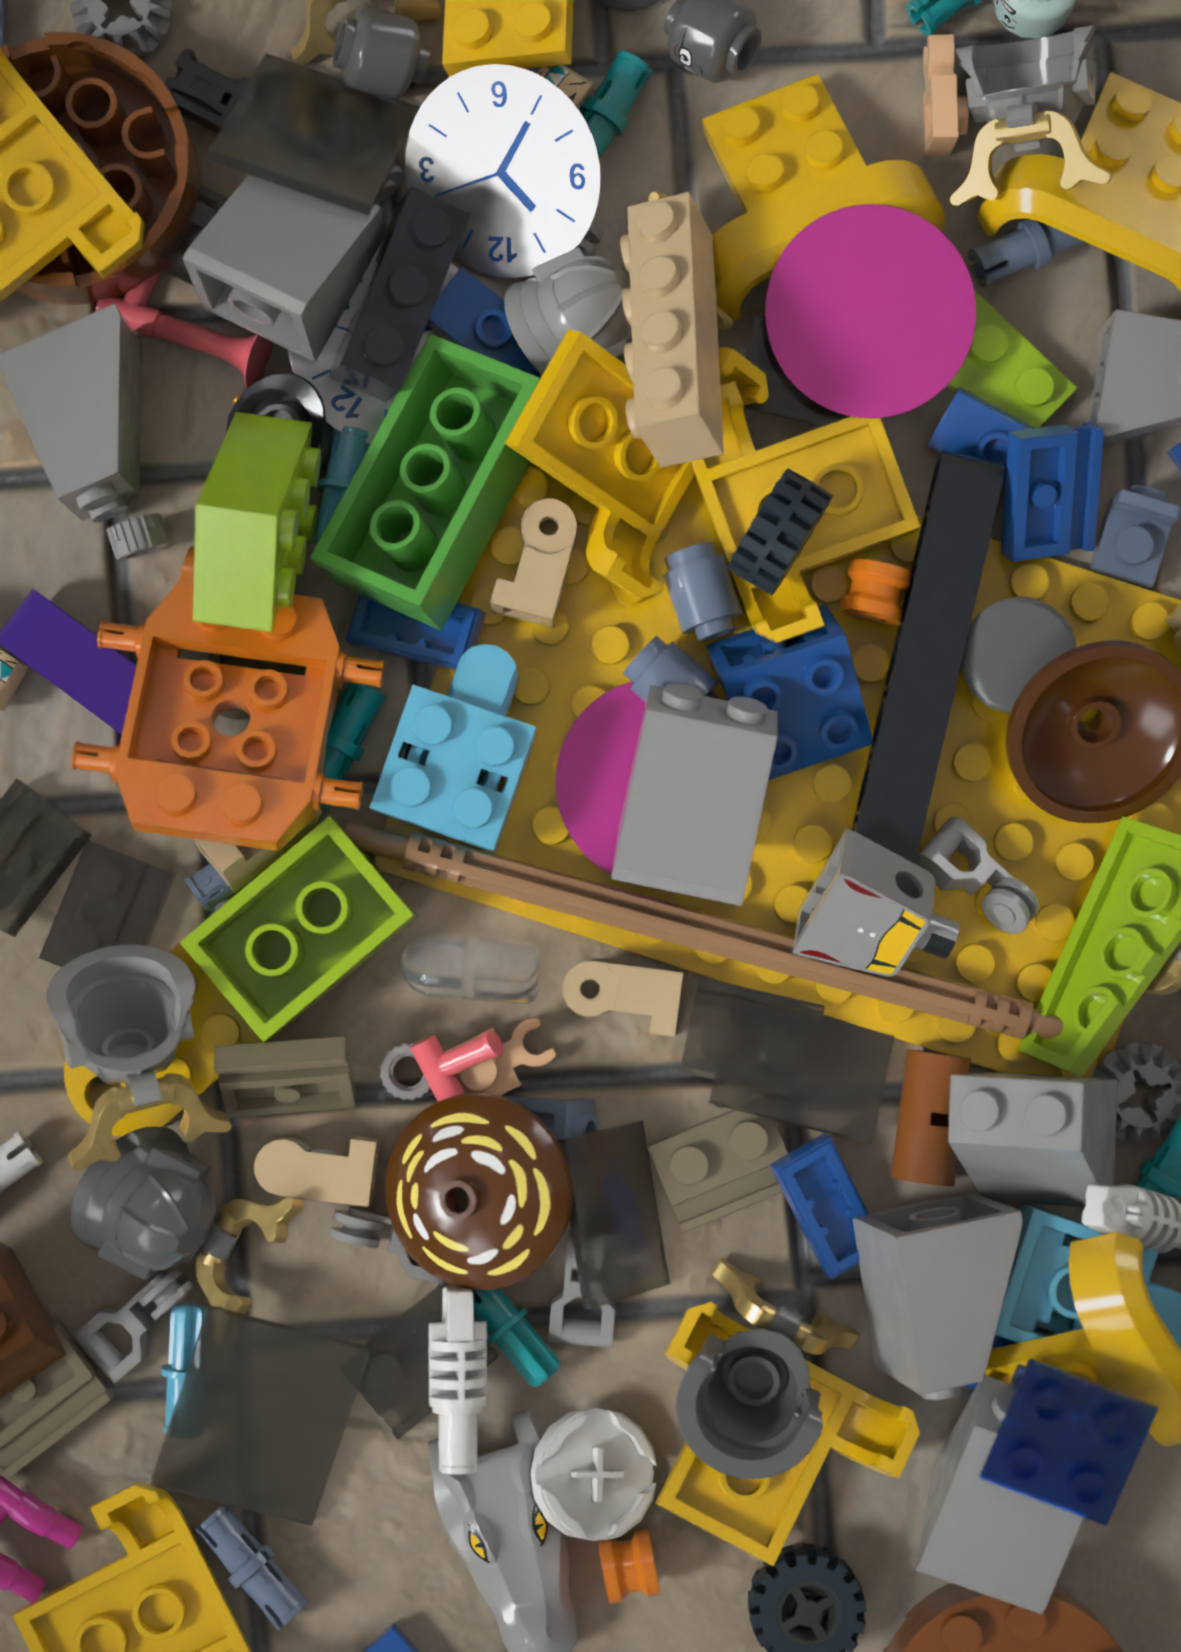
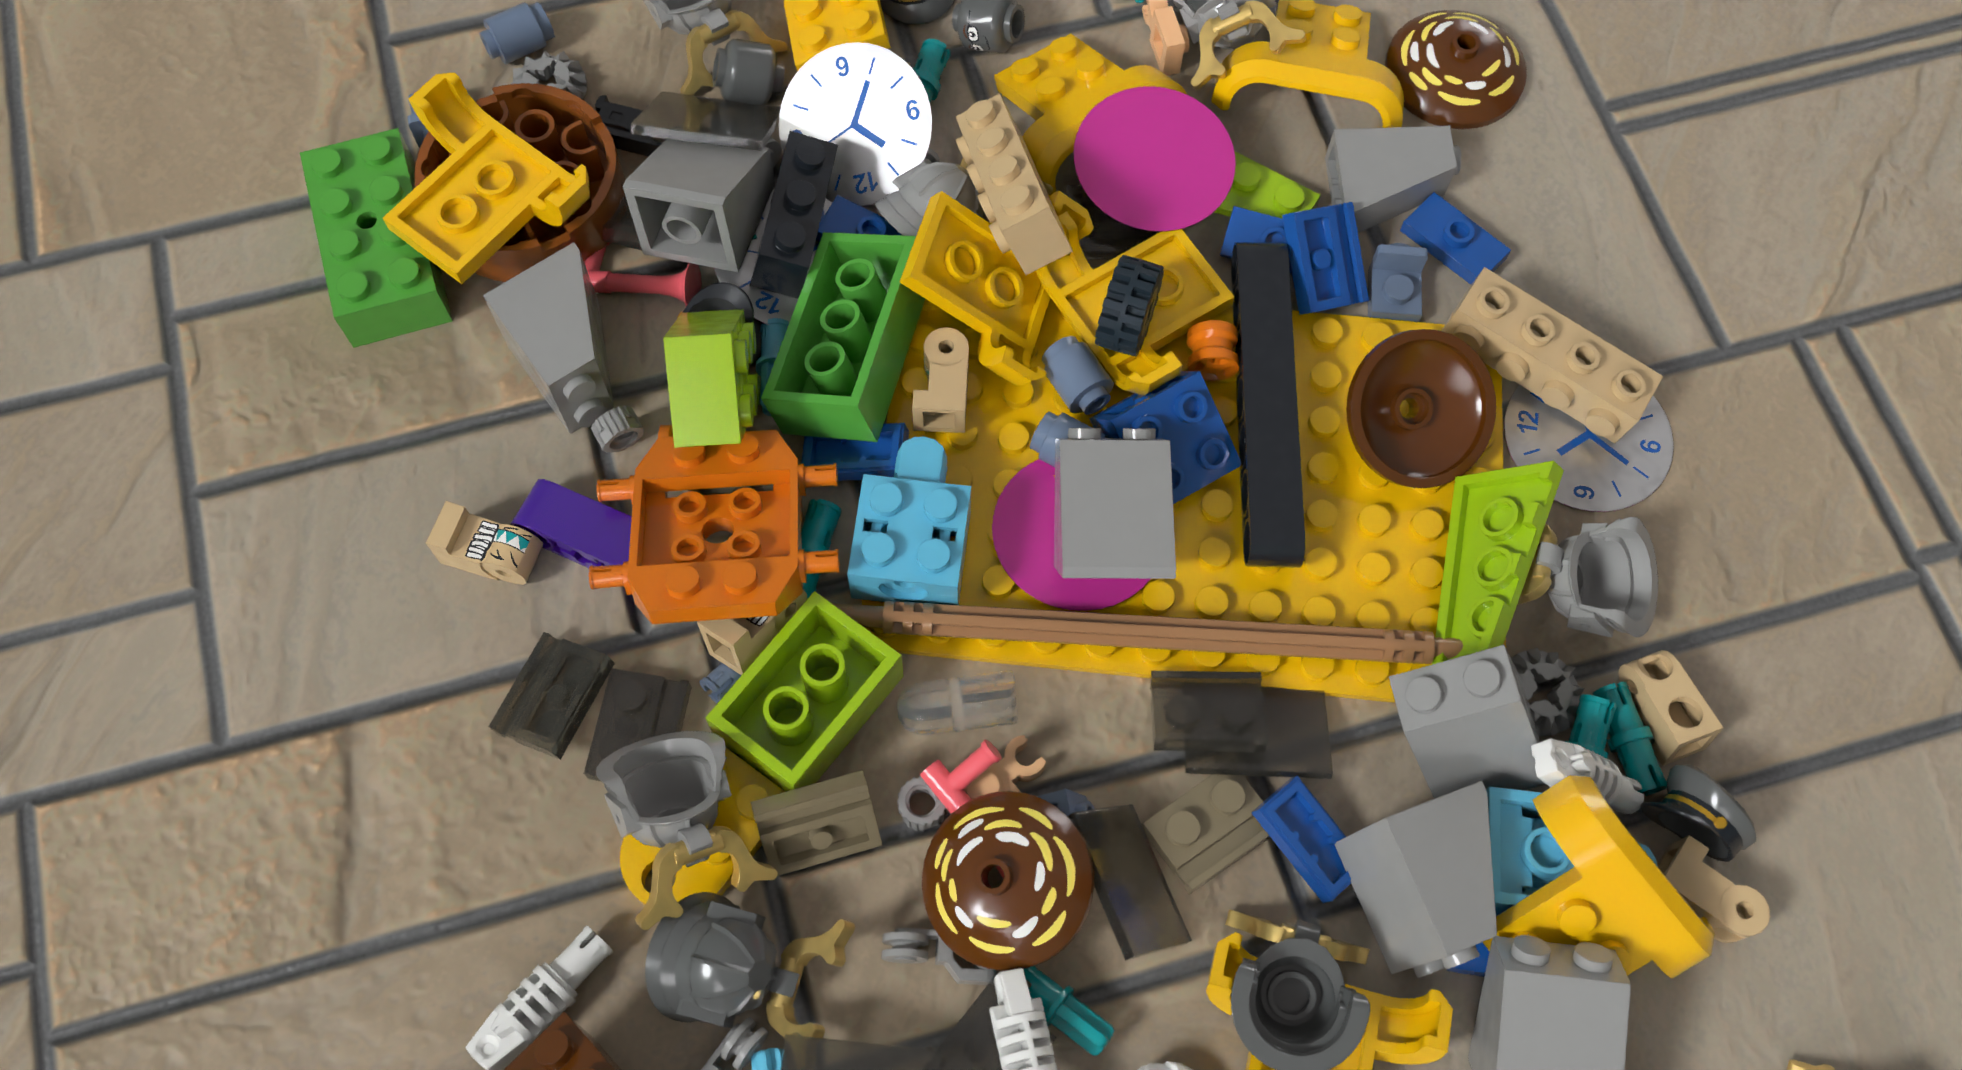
camera: 10 degrees left, 20 degrees down
(297, 1171) = (866, 903): tan leg -> none
(578, 1330) = (1118, 1000): light grey piece -> none
(601, 986) = (1092, 695): tan leg -> none
(871, 910) = (1280, 577): light grey torso -> none
(923, 1119) = (1375, 746): dark orange pin -> none
(1007, 905) = (1340, 534): light grey piece -> none
(1010, 646) = (1326, 367): dark grey piece -> none
(1027, 246) = (1259, 110): sand blue pin -> none
(1067, 1441) = (1591, 963): clear blue hinge -> none

